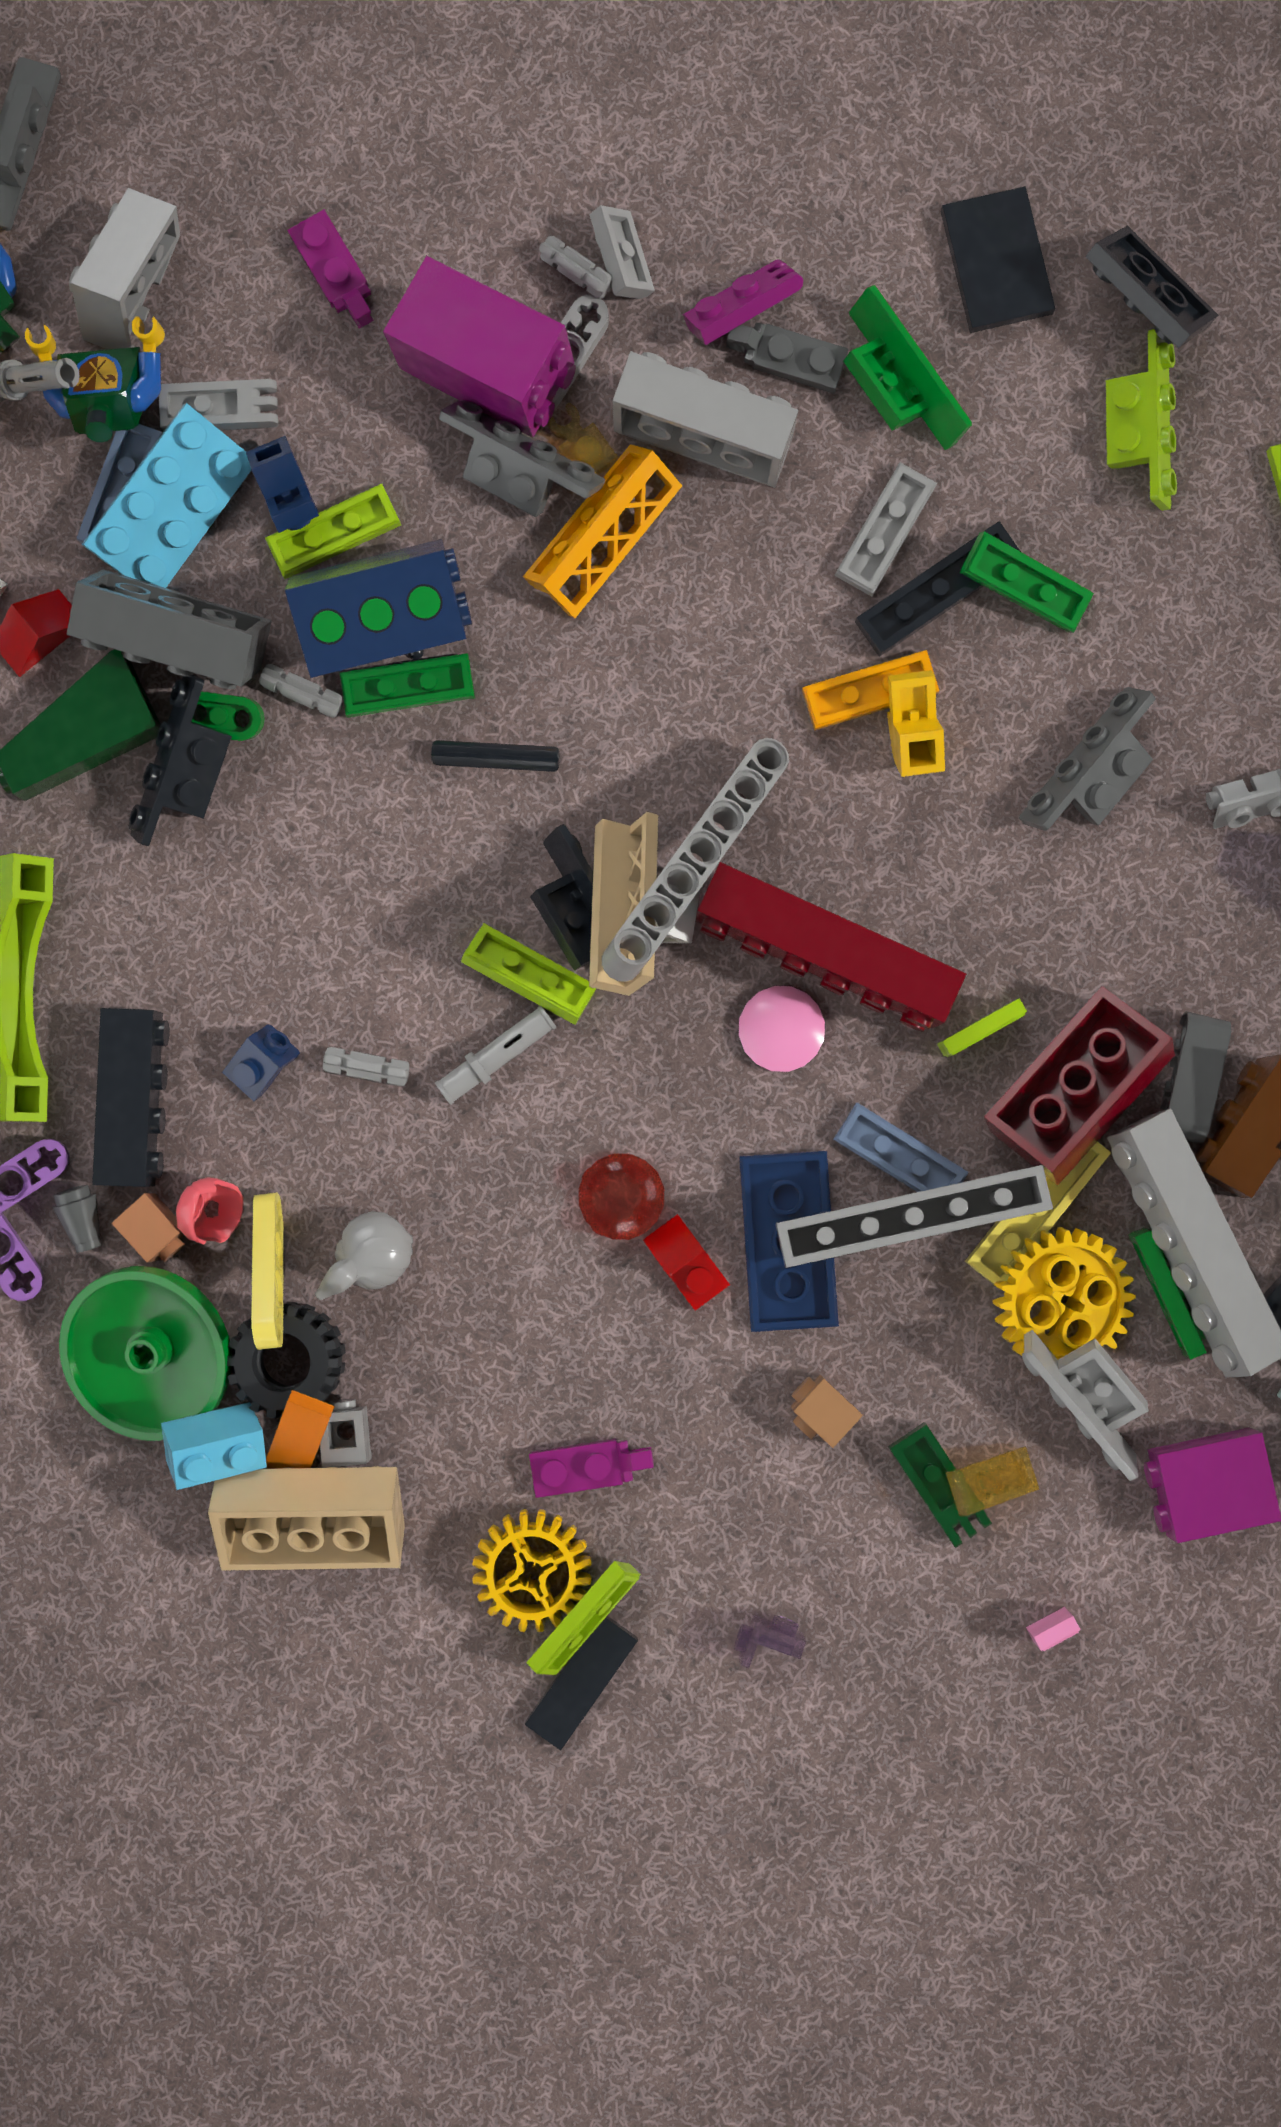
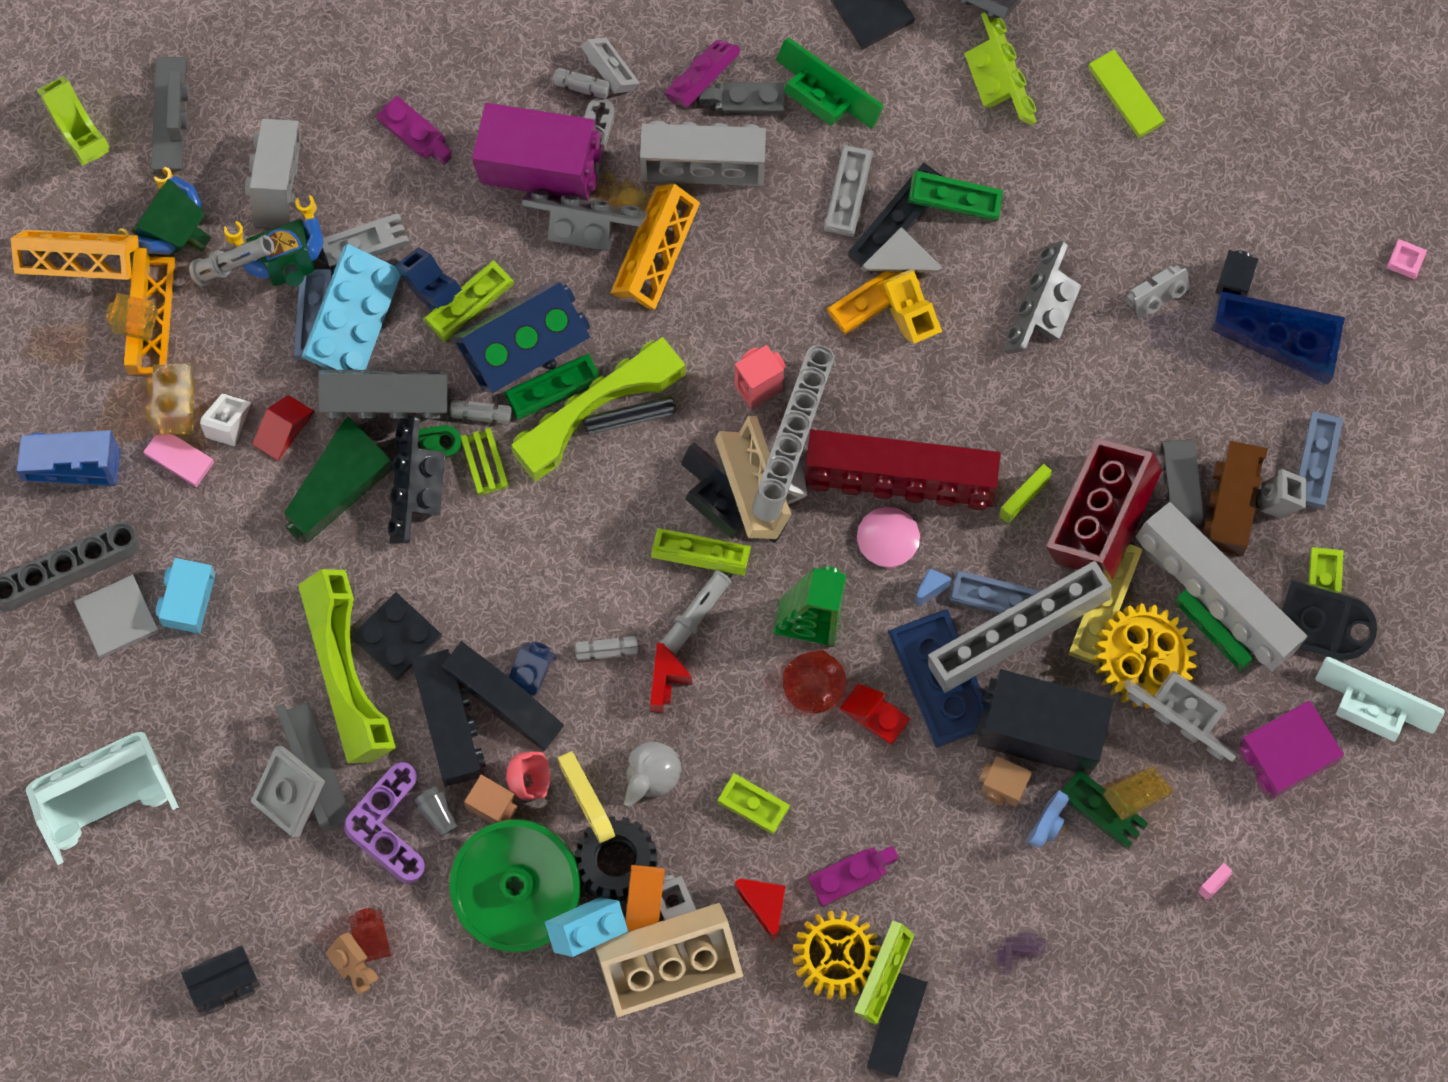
camera: 20 degrees left, 15 degrees down
(99, 964) = (396, 636): none -> black plate
(207, 1092) = (503, 696): none -> black slope
(285, 724) = (477, 437): none -> lime tile
(370, 764) = (649, 371): none -> lime arch
(431, 1119) = (669, 670): none -> red slope
(460, 1472) = (764, 901): none -> red slope
(489, 1335) = (753, 804): none -> lime plate
(642, 1107) = (813, 607): none -> green wedge
(680, 757) = (759, 375): none -> coral brick
(815, 1114) = (931, 586): none -> medium blue slope
(861, 1483) = (1049, 821): none -> medium blue piece
(901, 1356) = (1043, 722): none -> black brick
(925, 645) = (900, 255): none -> light grey tile

